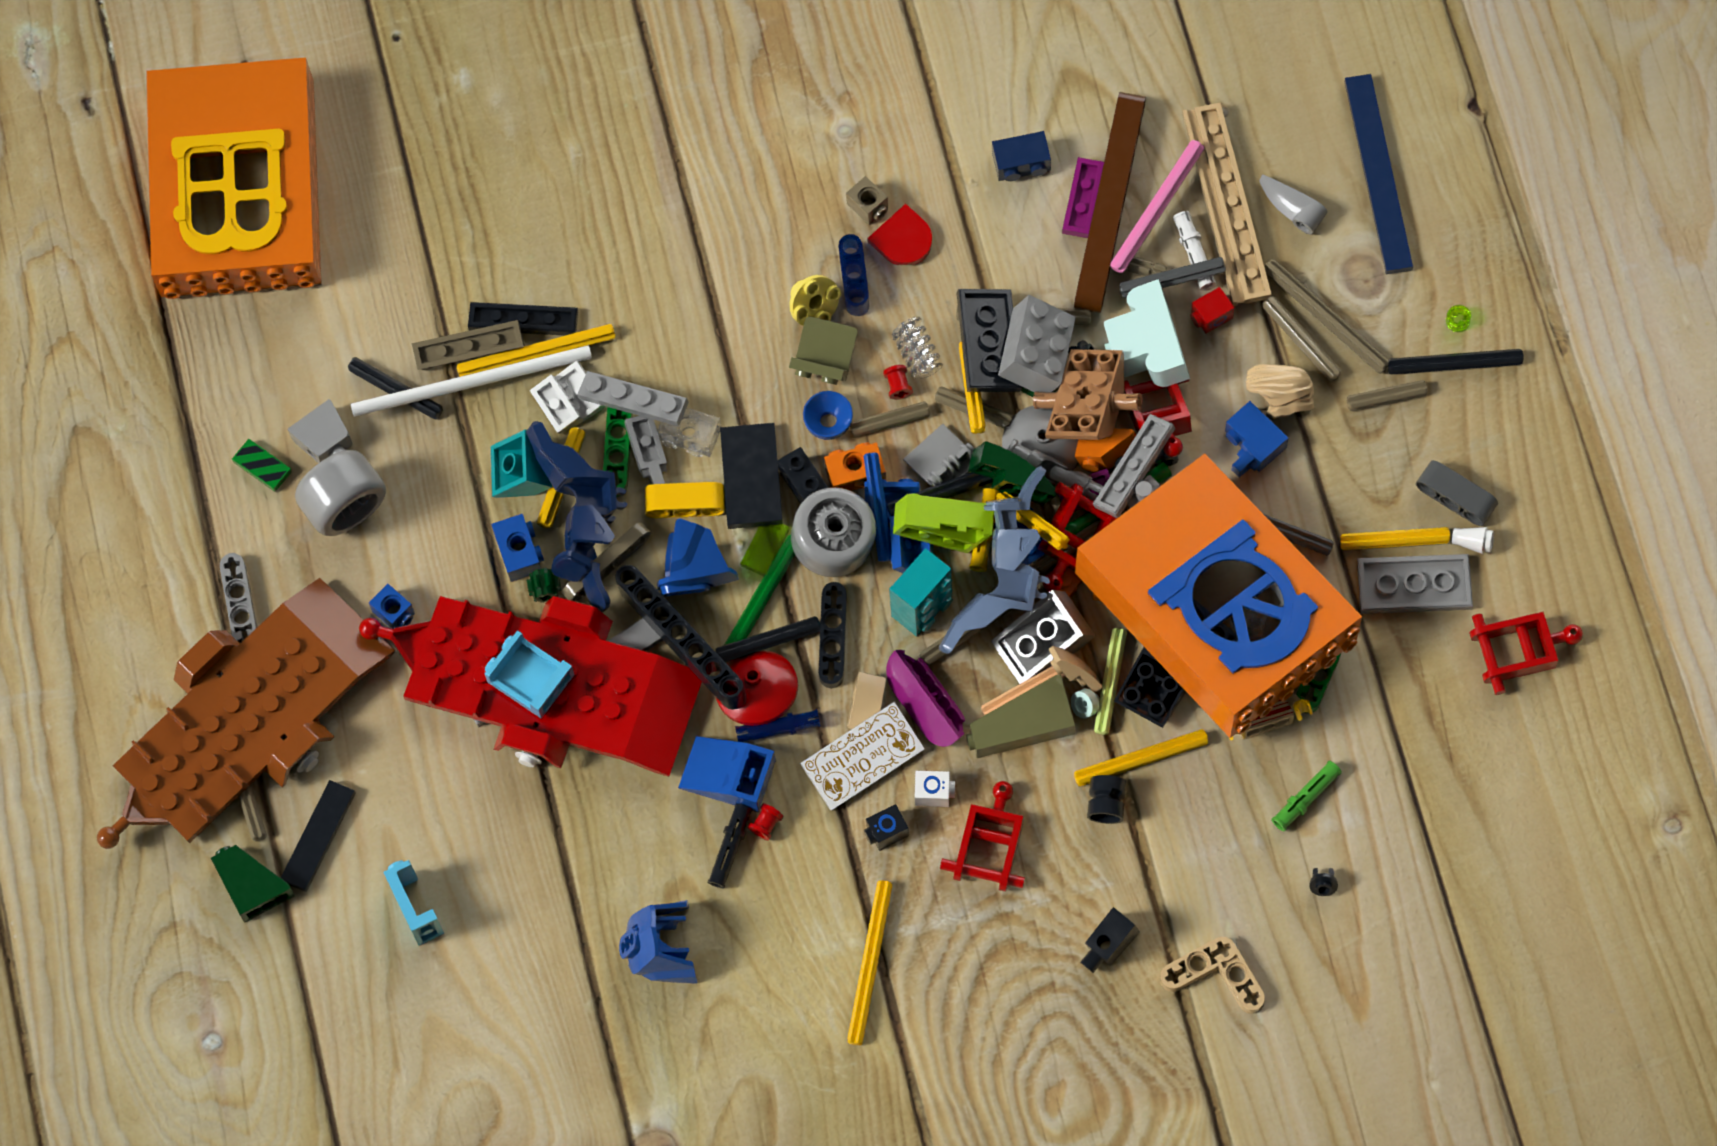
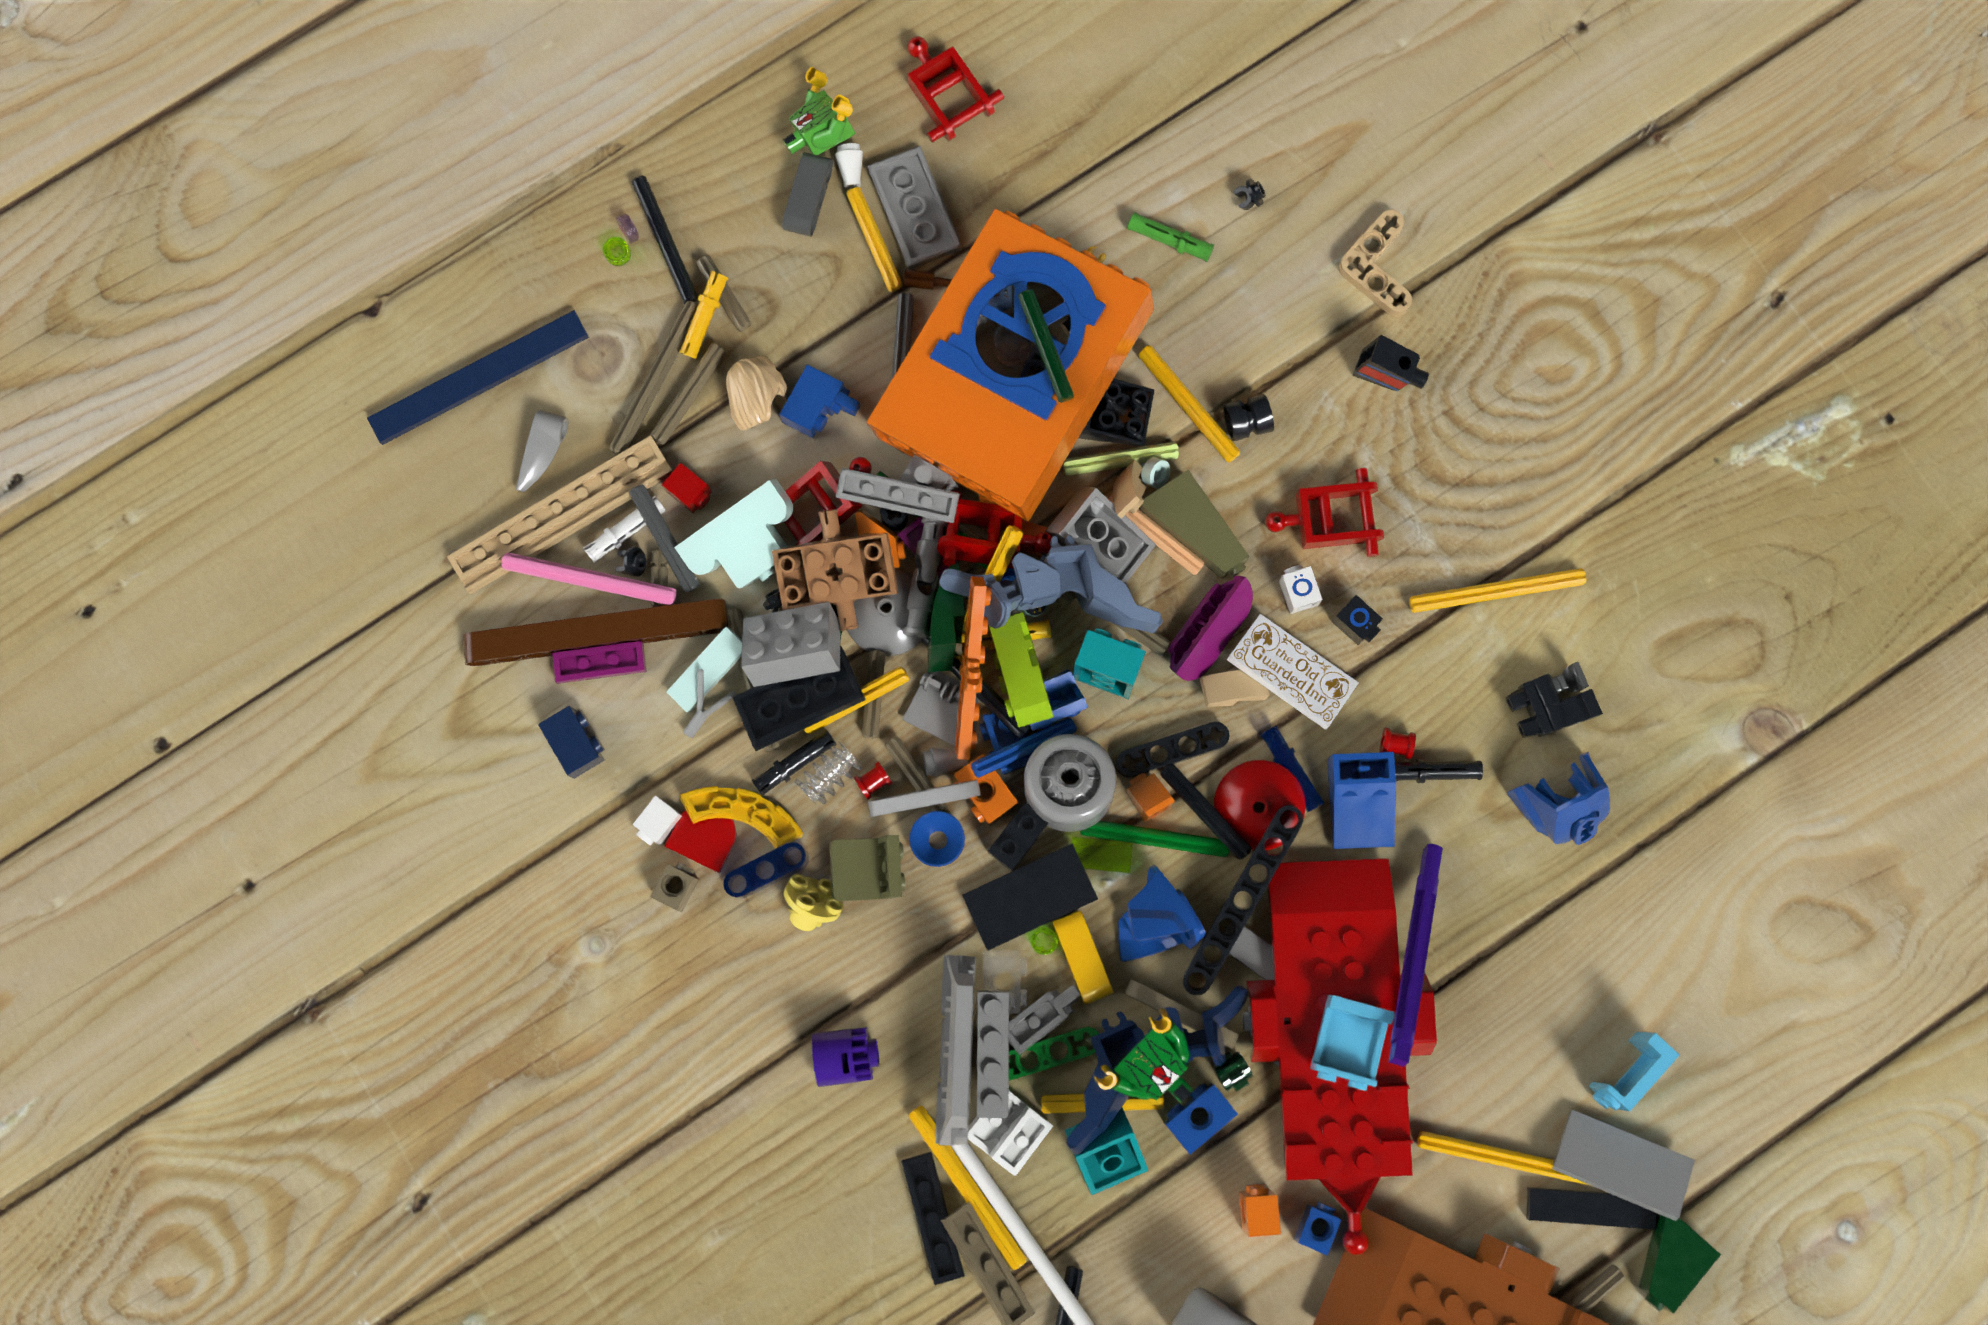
camera: 110 degrees left, 10 degrees up
(342, 868) = (1623, 1165): none -> light grey tile
(383, 785) = (1490, 1155): none -> yellow axle
(424, 561) = (1259, 1211): none -> orange brick
(572, 503) = (1153, 1064): none -> green torso
(579, 753) = (1415, 956): none -> dark purple piece
(645, 368) = (956, 1050): none -> light grey connector
(677, 285) = (844, 1056): none -> dark purple gear
(704, 469) = (1047, 932): none -> clear neon green bush
(748, 958) = (1544, 704): none -> black hips
(797, 595) = (1149, 796): none -> orange slope
(865, 412) = (924, 798): none -> light grey beam
(893, 443) = (941, 761): none -> light grey cone
(914, 275) = (745, 807): none -> yellow tile
(928, 202) = (656, 821): none -> white brick
(935, 315) = (794, 762): none -> black pin
(947, 470) = (970, 673): none -> orange hinge
(1007, 265) = (702, 714): none -> light grey plant
(1043, 277) = (715, 661): none -> light aqua tile
(1162, 249) = (633, 561): none -> black plate
(1213, 609) = (1046, 345): none -> dark green axle
(1341, 566) = (923, 279): none -> reddish brown axle
(1377, 375) = (708, 303): none -> yellow pin
(1475, 331) = (627, 228): none -> tile
(1521, 522) = (820, 121): none -> bright green torso

